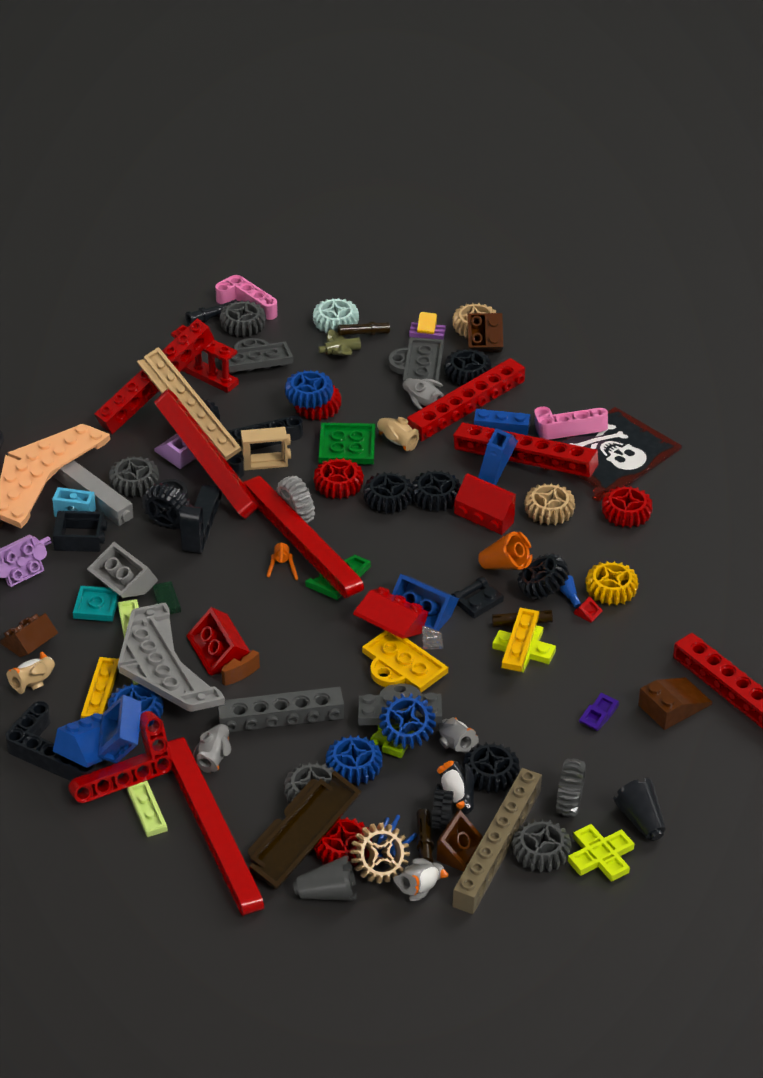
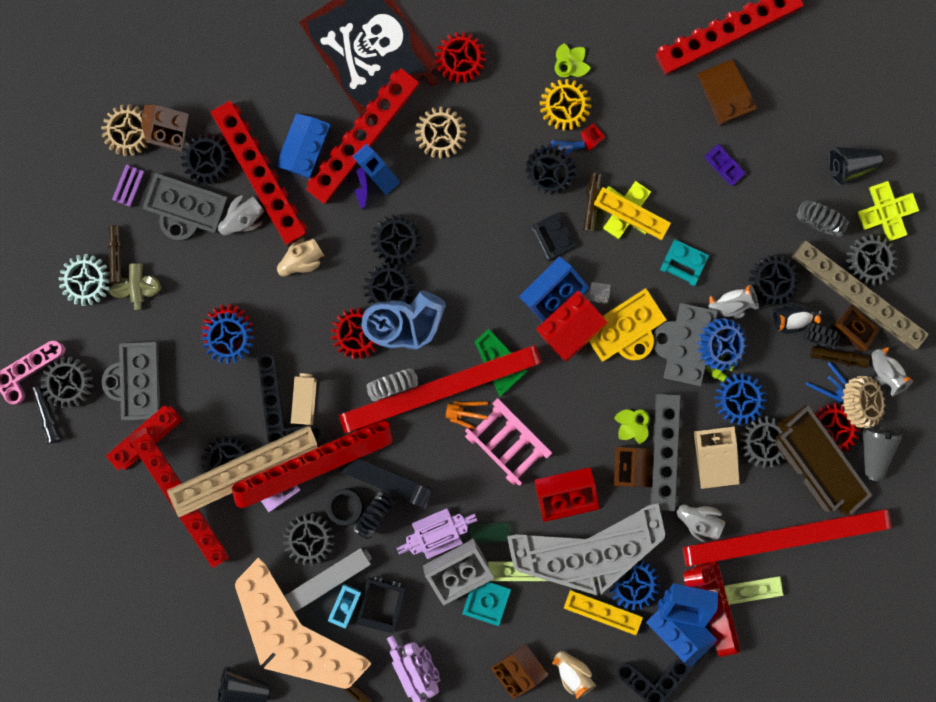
camera: 75 degrees left, 45 degrees up
(157, 552) = (436, 533): none -> lavender piece
(238, 670) = (606, 485): dark orange slope -> none
(258, 678) = (633, 467): none -> reddish brown slope
(268, 607) = (525, 438): none -> bright pink fence
(287, 748) = (717, 457): none -> tan slope
(308, 681) = (631, 427): none -> lime plate
(347, 441) = (301, 312): green plate -> none
(355, 496) = (404, 325): none -> medium blue piece
(427, 323) = (125, 185): yellow slope -> none
(469, 463) = (362, 193): none -> dark purple slope
(485, 504) = (437, 199): red slope -> none
(491, 701) = (687, 257): none -> teal plate
(507, 553) = (519, 196): orange cone -> none
(569, 423) = (324, 76): bright pink beam -> none
(656, 583) = (572, 59): none -> lime plate

